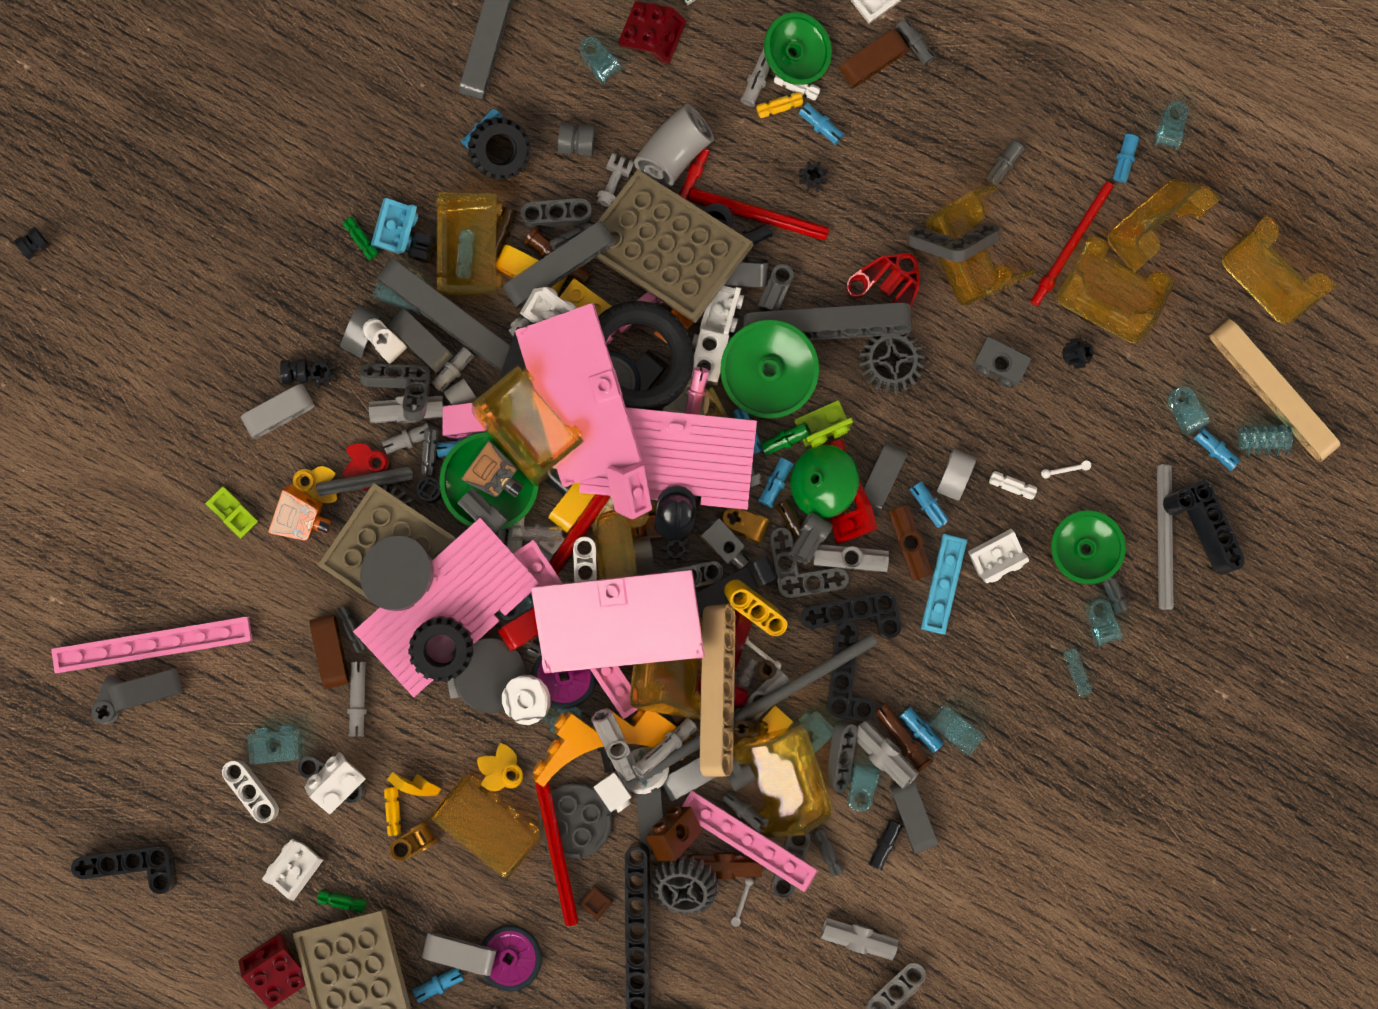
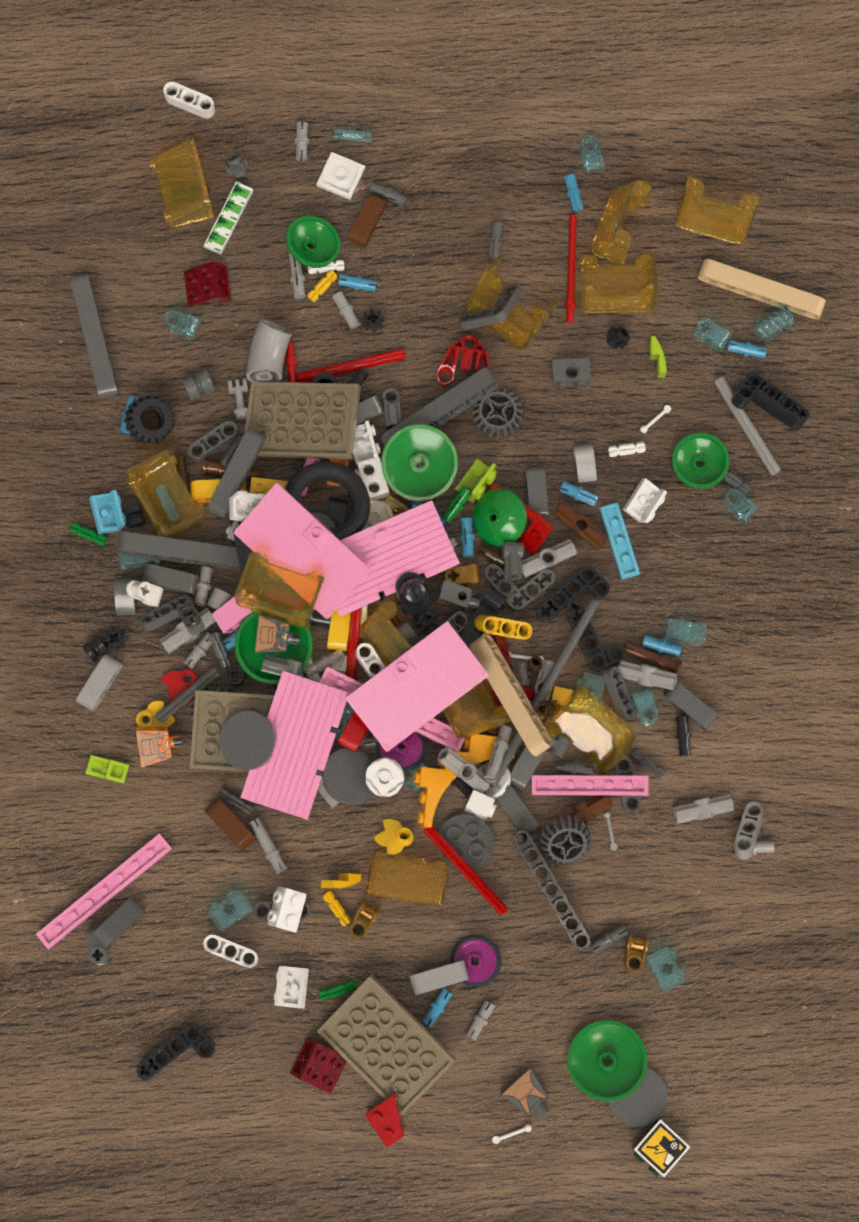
camera: 30 degrees left, 5 degrees down
(425, 664) = (295, 785): black tyre -> none
(595, 902) = (511, 889): reddish brown tile -> none
(629, 490) = (373, 594): bright pink panel -> none
(674, 833) = (537, 809): reddish brown brick -> none
(696, 391) = (378, 504): bright pink axle -> none
(790, 147) = (346, 310): none -> light grey pin
(1077, 672) = (742, 548): clear light blue axle -> none
(1111, 395) = (656, 353): none -> lime slope

